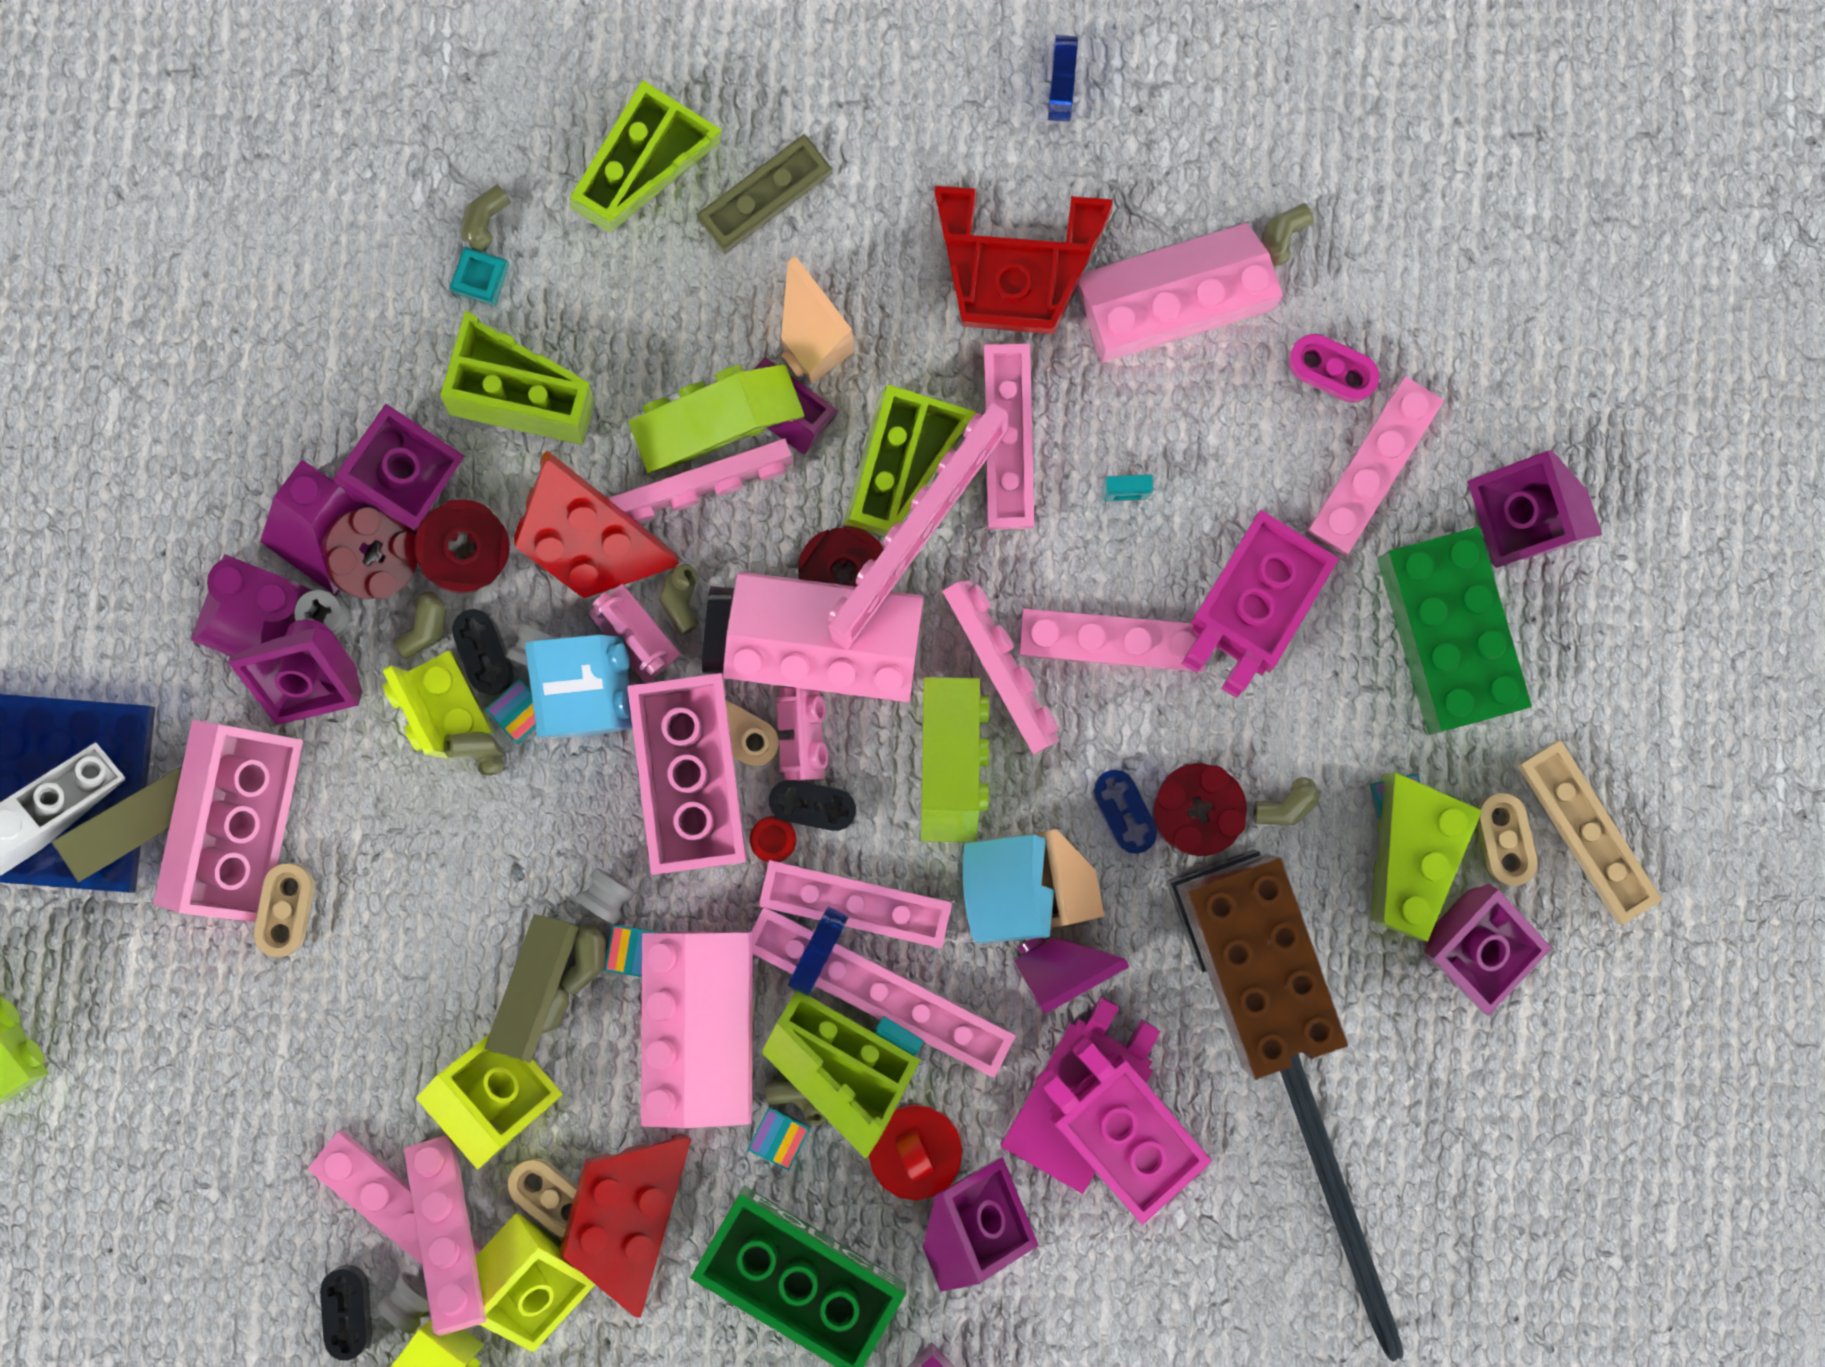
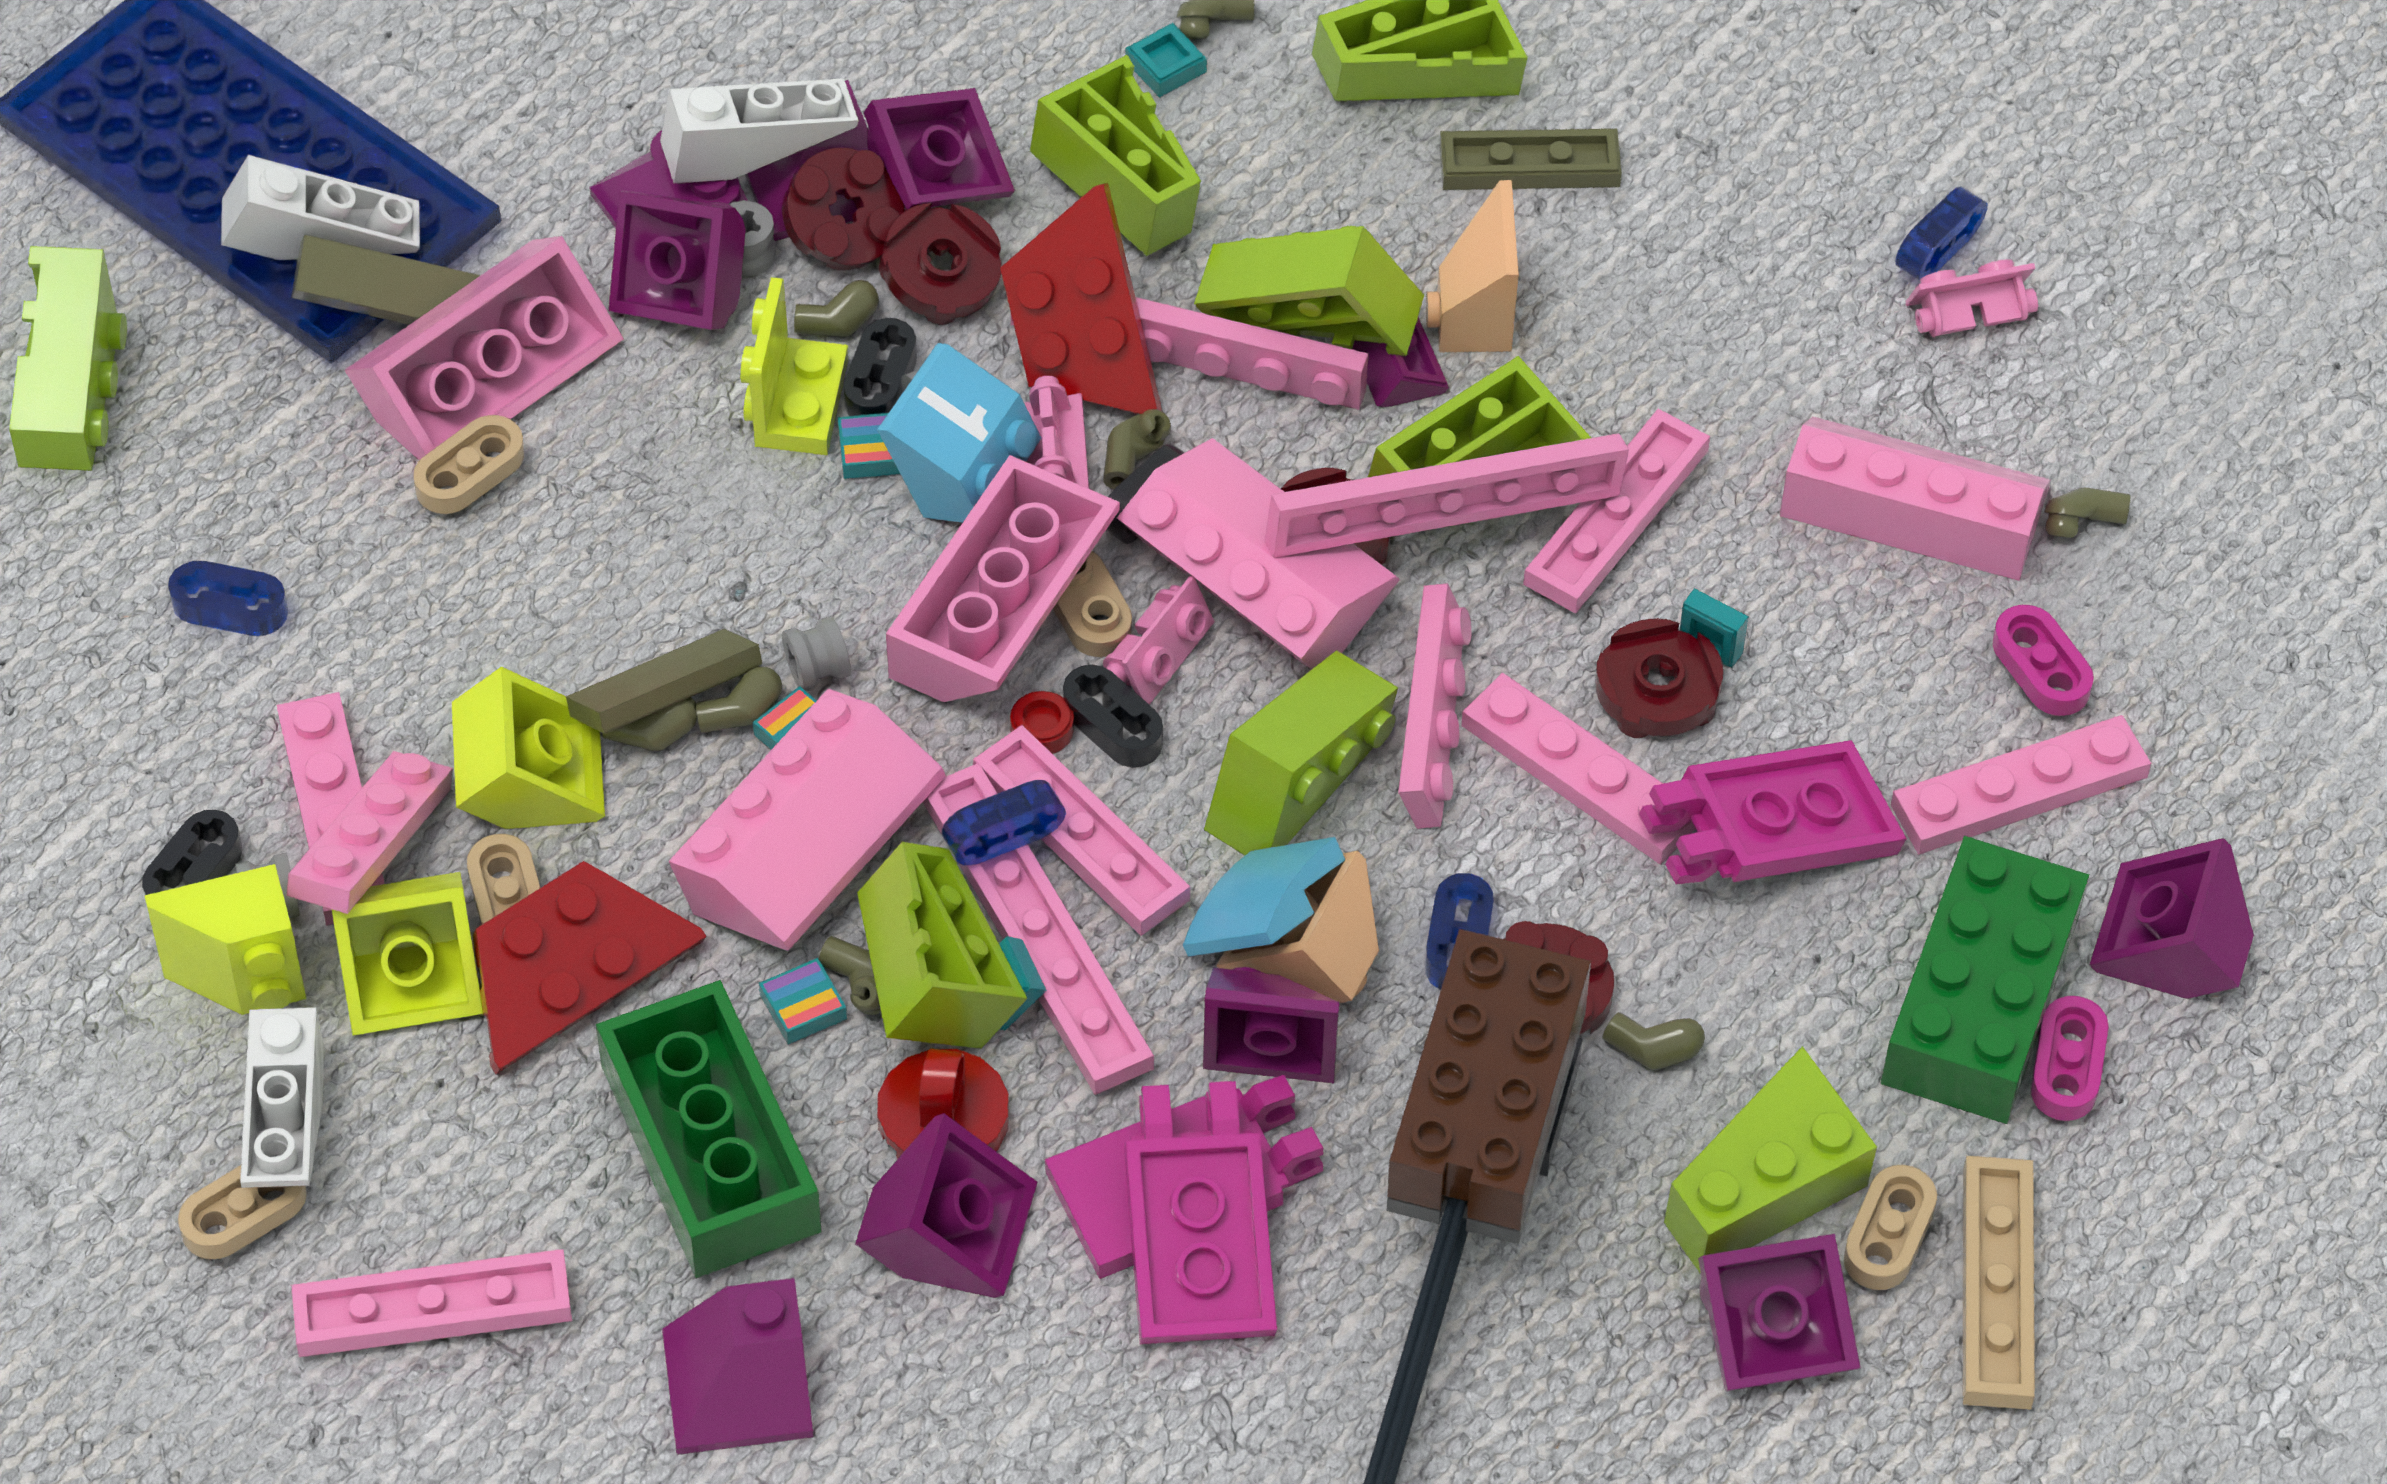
camera: 35 degrees right, 30 degrees down
(217, 1120) = (228, 598): none -> clear blue beam
(274, 547) = (741, 128): none -> white slope
(480, 747) = (804, 444): olive arm -> none
(1015, 280) = (1747, 378): red wing -> none
(1116, 518) = (1652, 708): none -> dark red plate
(1124, 100) = (1950, 299): none -> bright pink hinge
(1536, 646) = (2069, 1062): none -> dark pink plate

